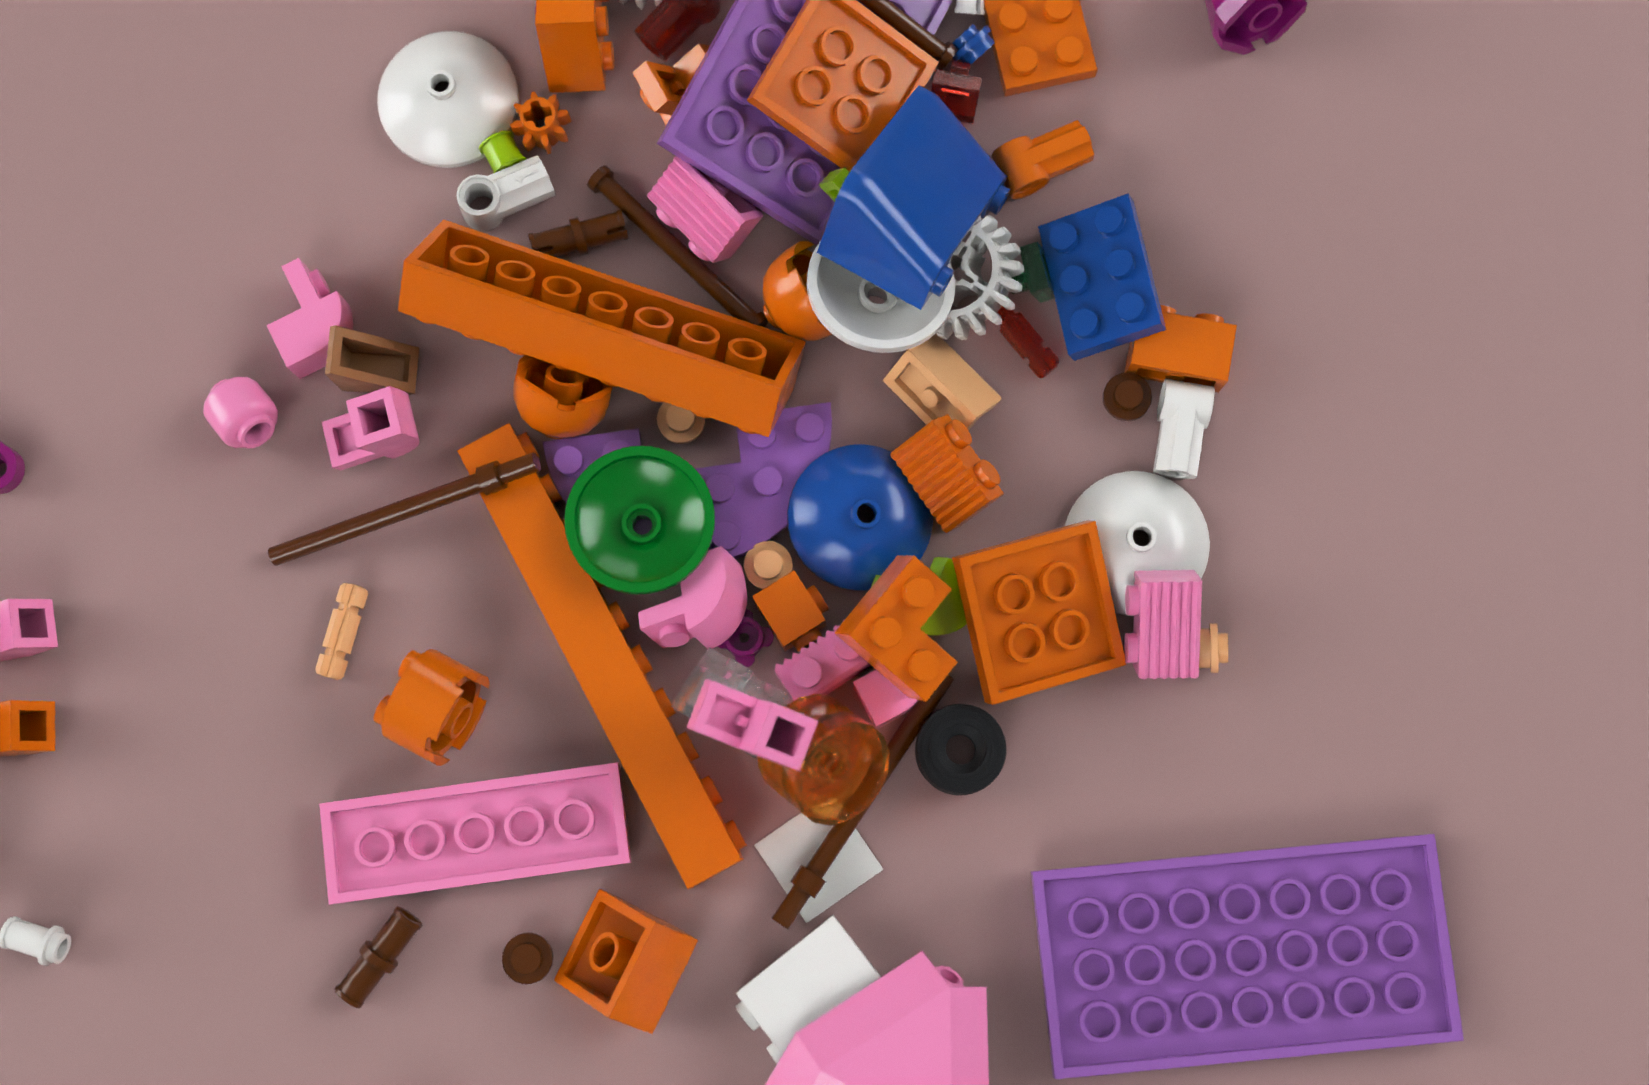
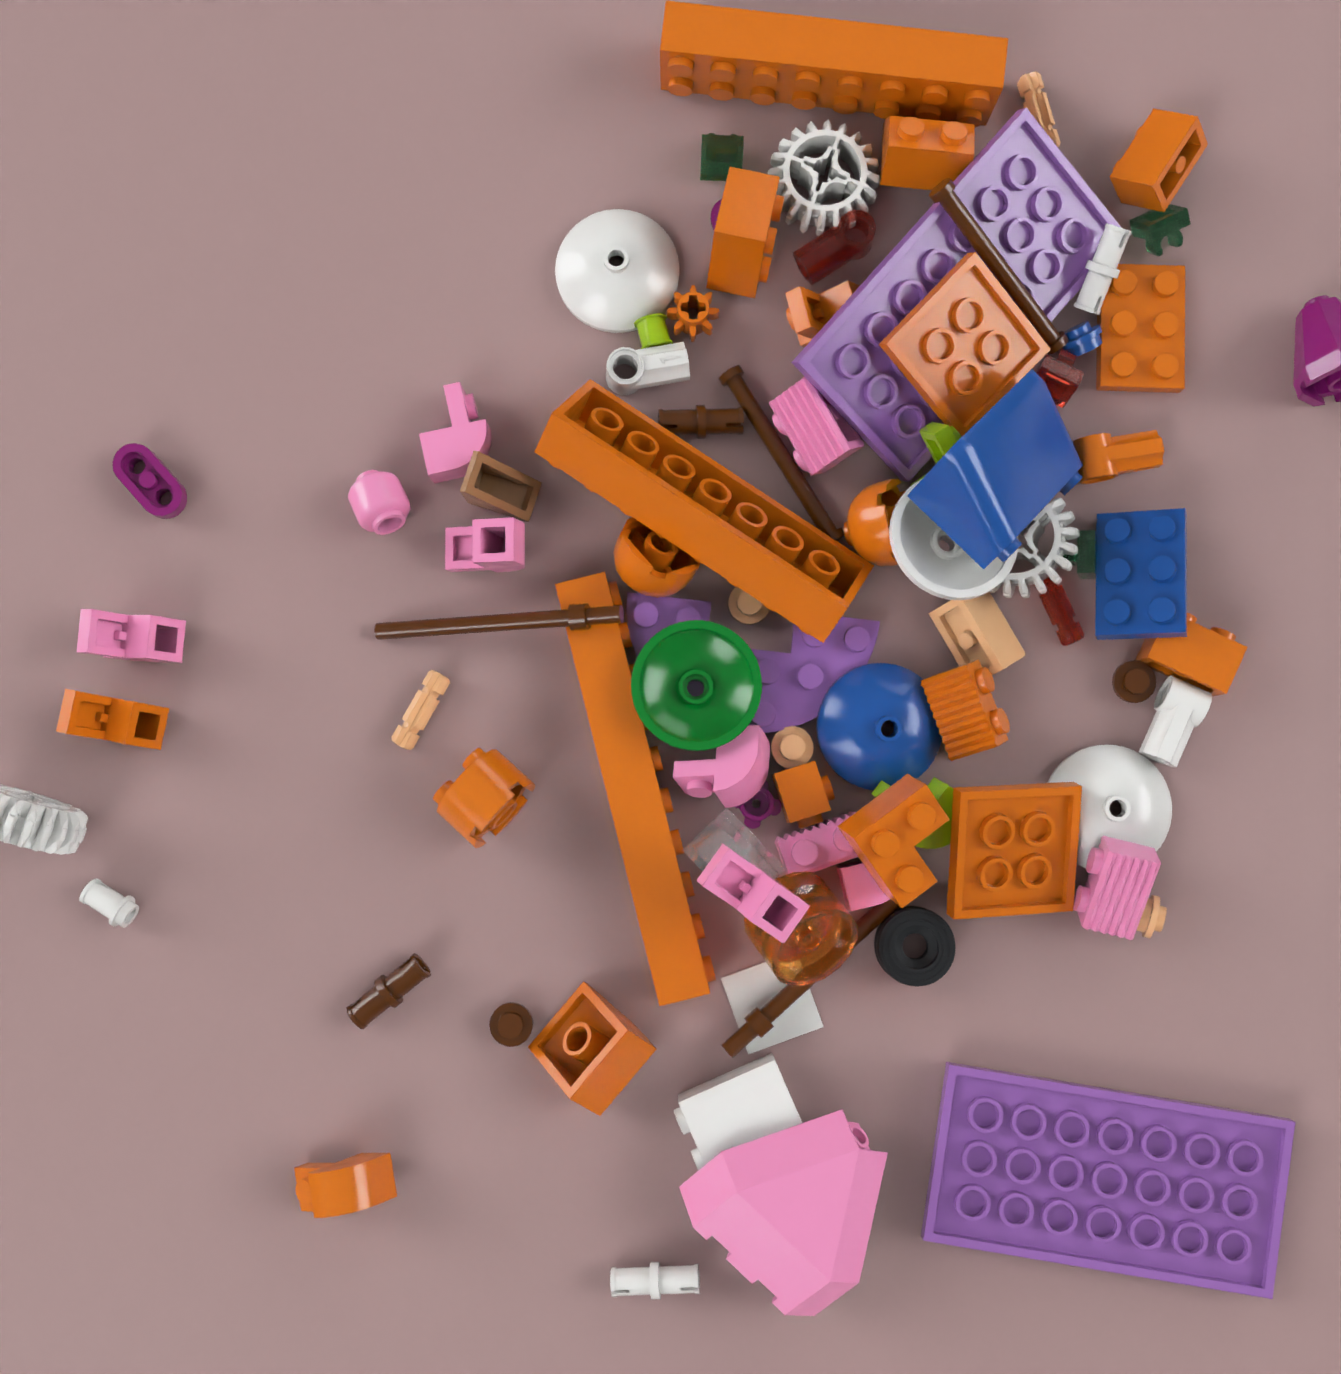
camera: 15 degrees right, 5 degrees up
(474, 833) = (492, 910): bright pink plate -> none

